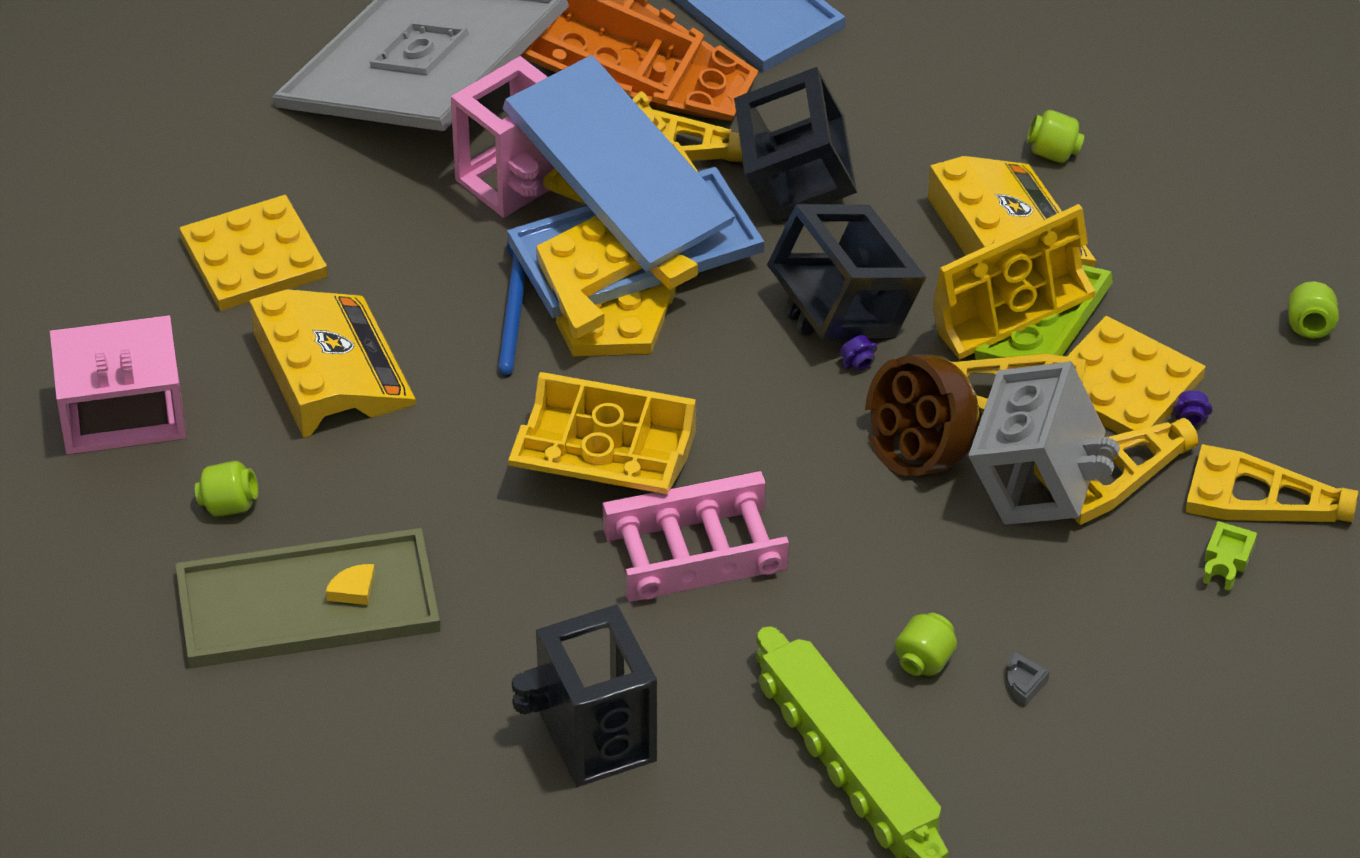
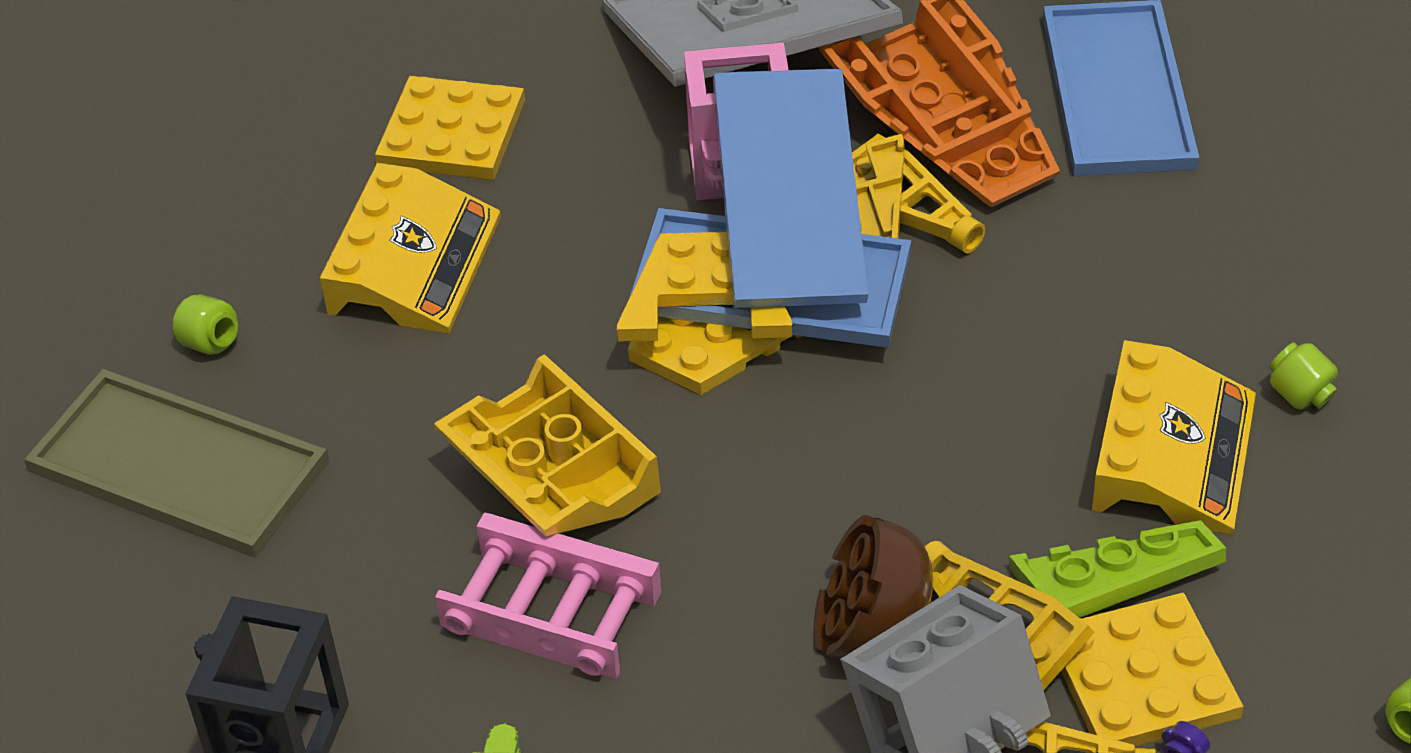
camera: 40 degrees right, 0 degrees up
(114, 363) = (210, 165): bright pink piece -> none
(352, 585) = (215, 469): yellow tile -> none
(512, 316) = (594, 304): blue piece -> none
(800, 161) = (998, 276): black piece -> none
(854, 286) = (920, 423): black piece -> none
(858, 353) = (888, 496): dark purple plate -> none
(1012, 283) = (1084, 502): yellow piece -> none

